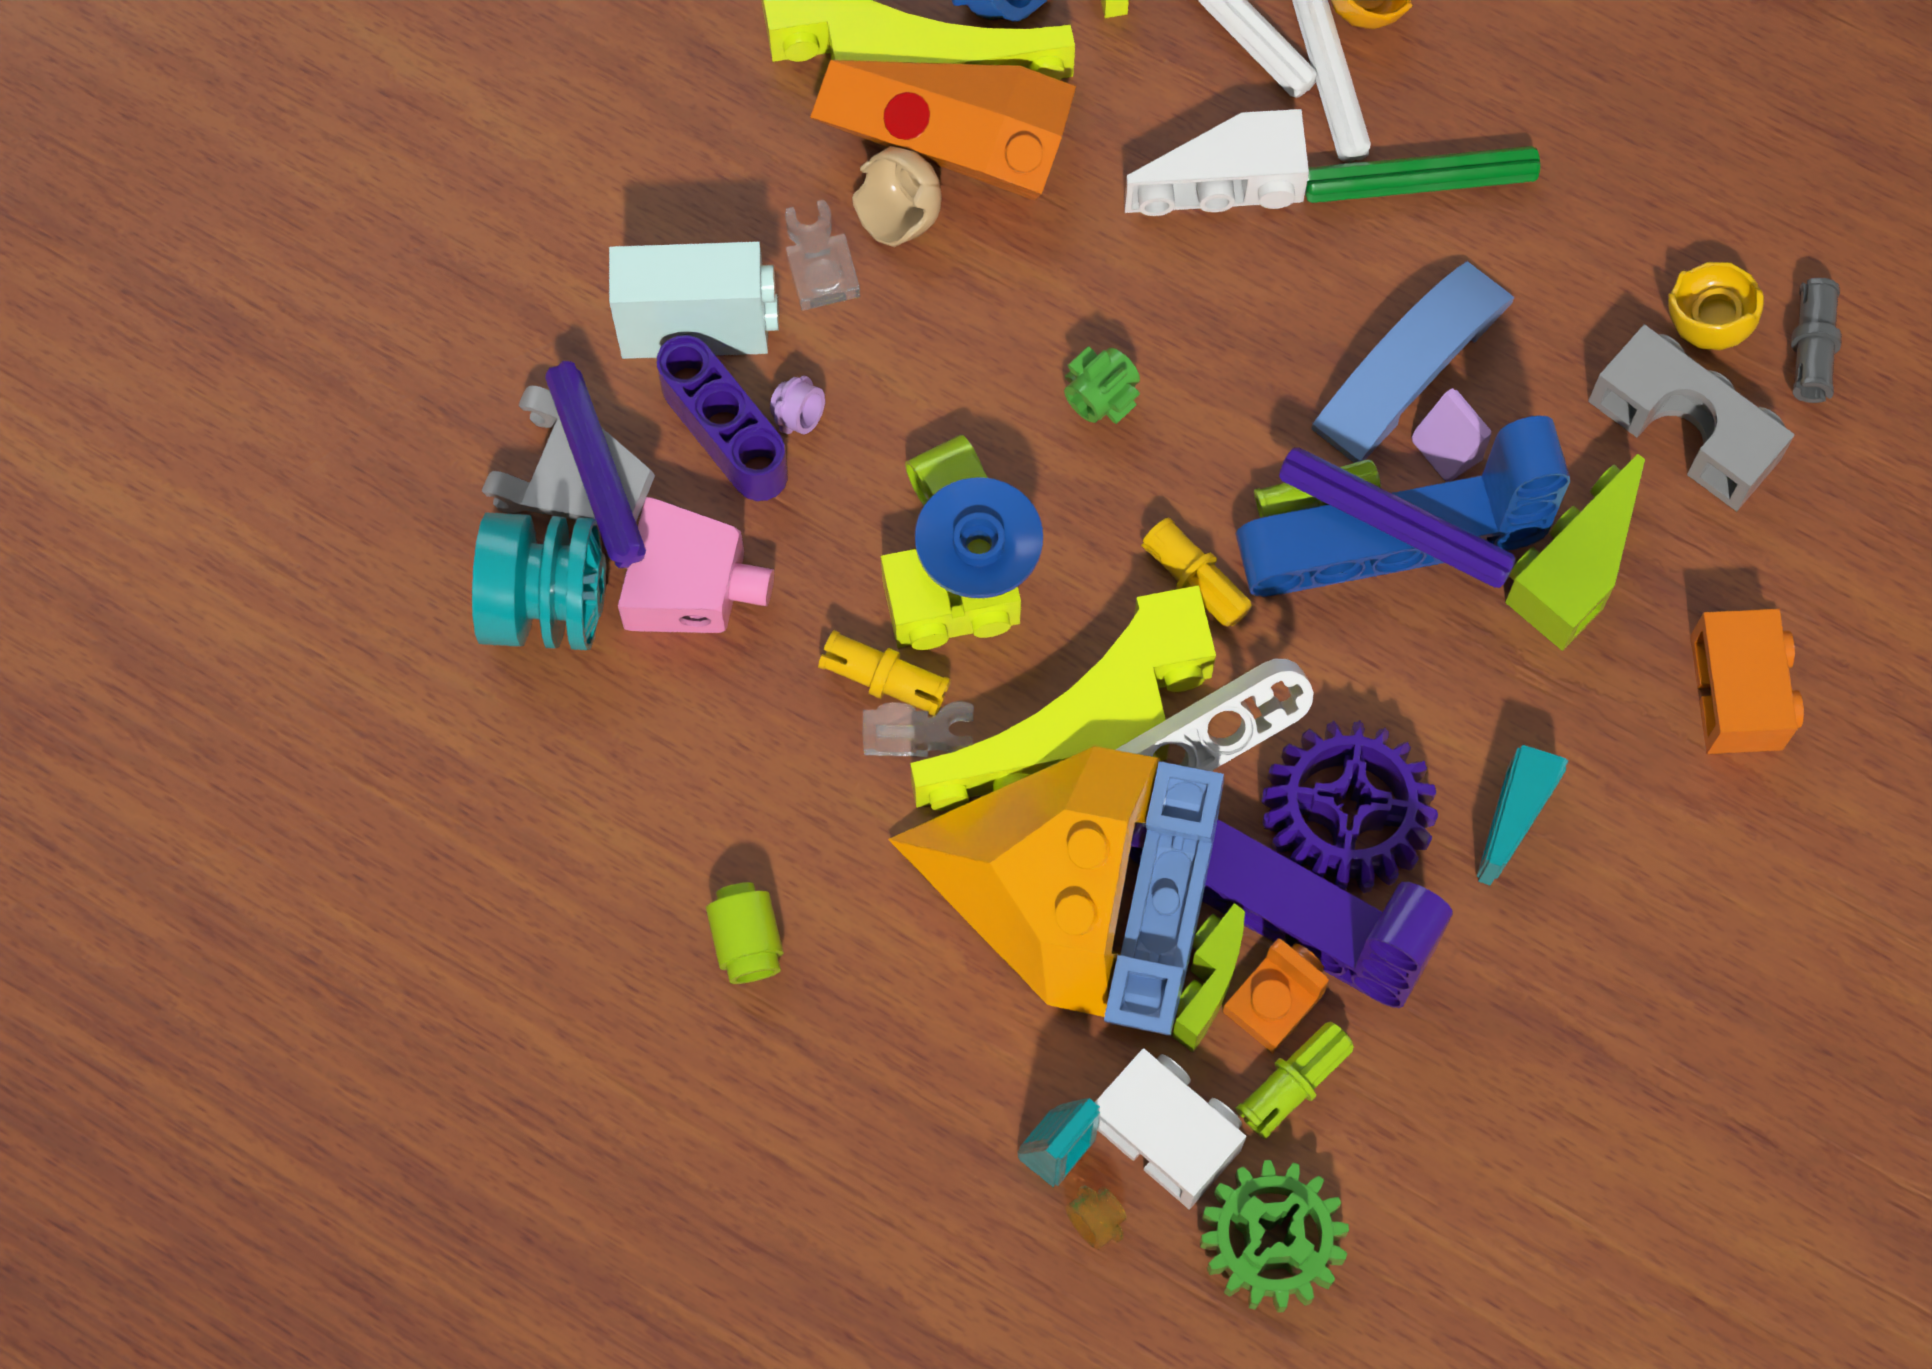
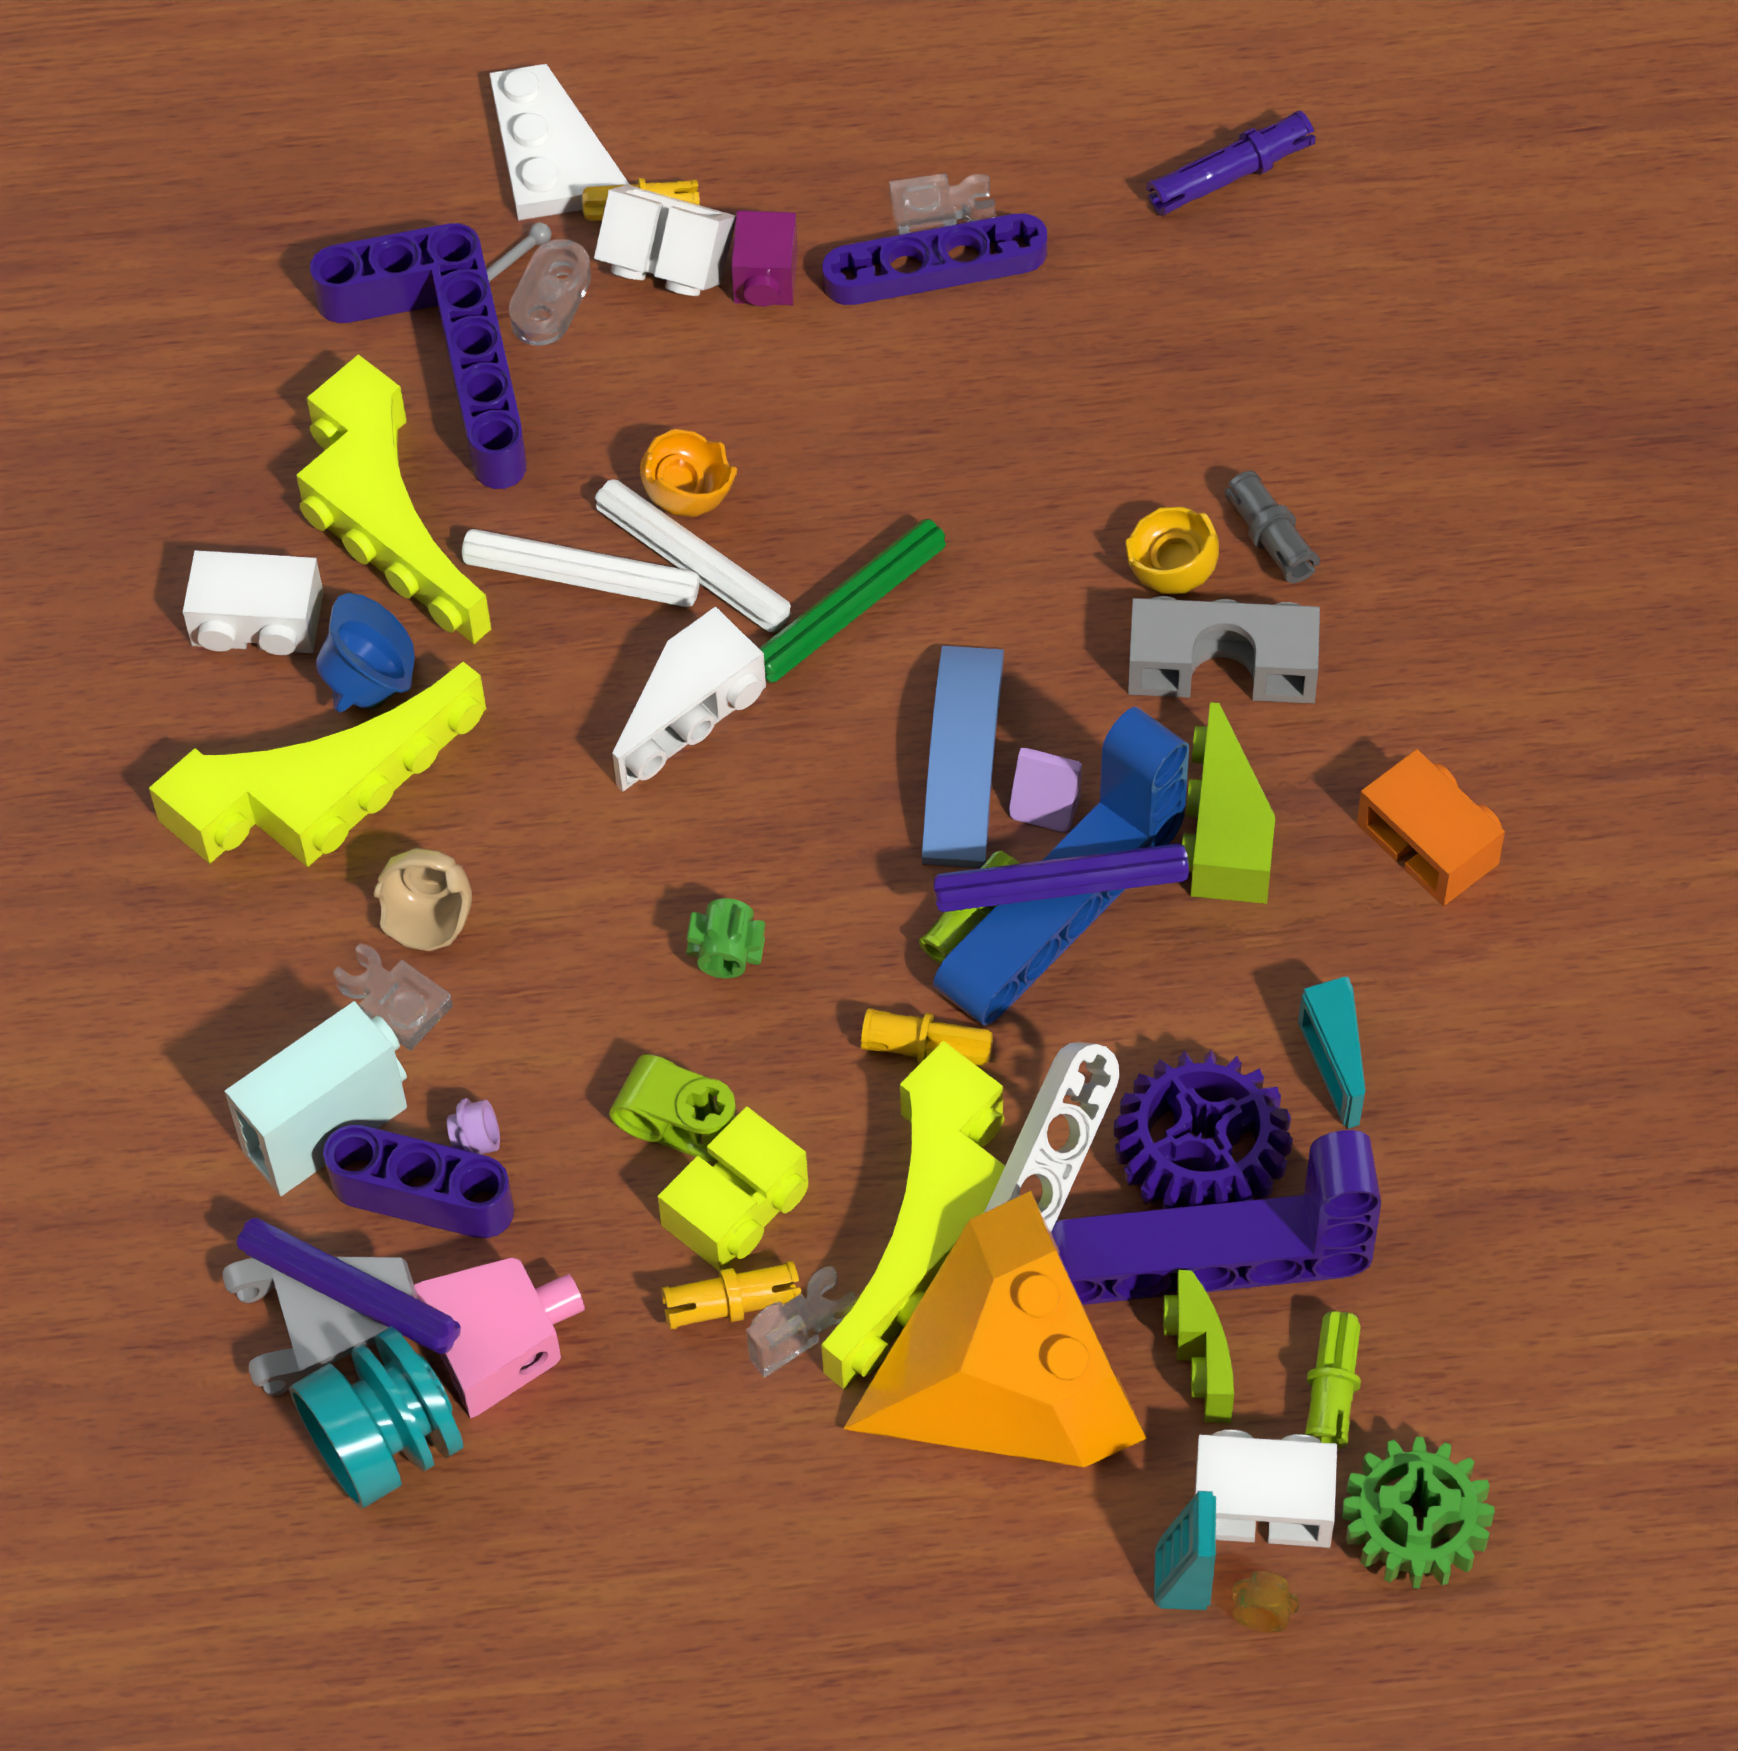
camera: 35 degrees left, 10 degrees down
(745, 933) = (788, 1586): lime brick -> none
(965, 117) = (441, 793): orange wedge -> none
(982, 511) = (731, 1095): blue dish -> none
(1166, 898) = (1122, 1302): medium blue slope -> none
(1278, 994) = (1265, 1323): orange bracket -> none

